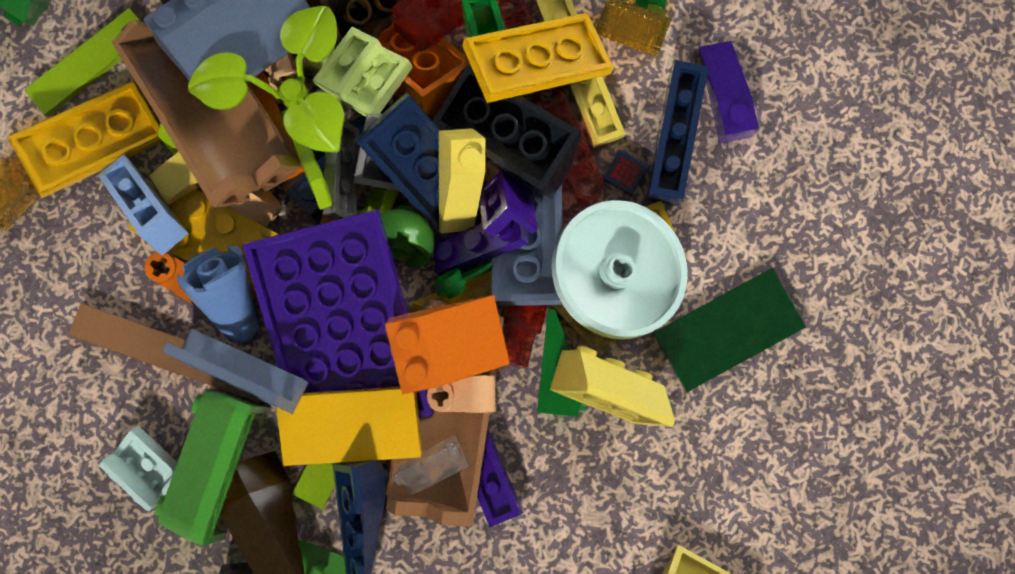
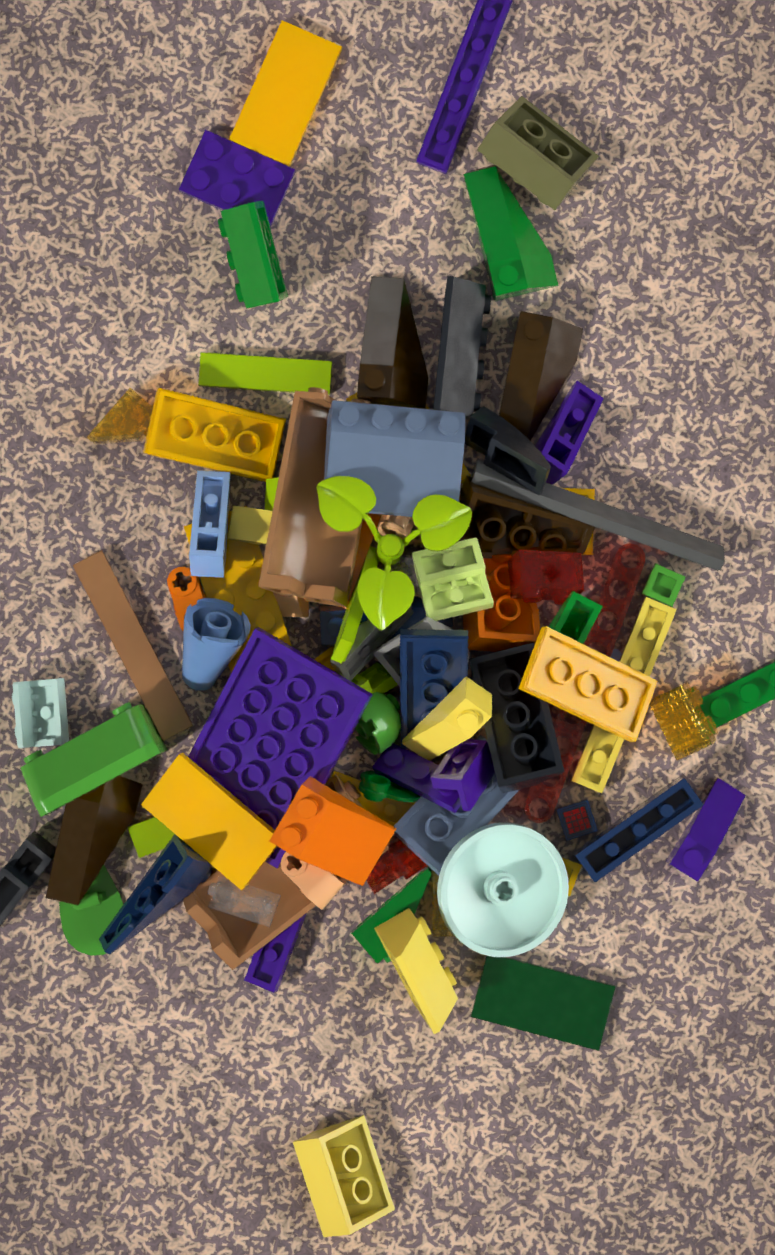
camera: 40 degrees right, 5 degrees up
(239, 370) = (171, 710): sand blue fence -> none

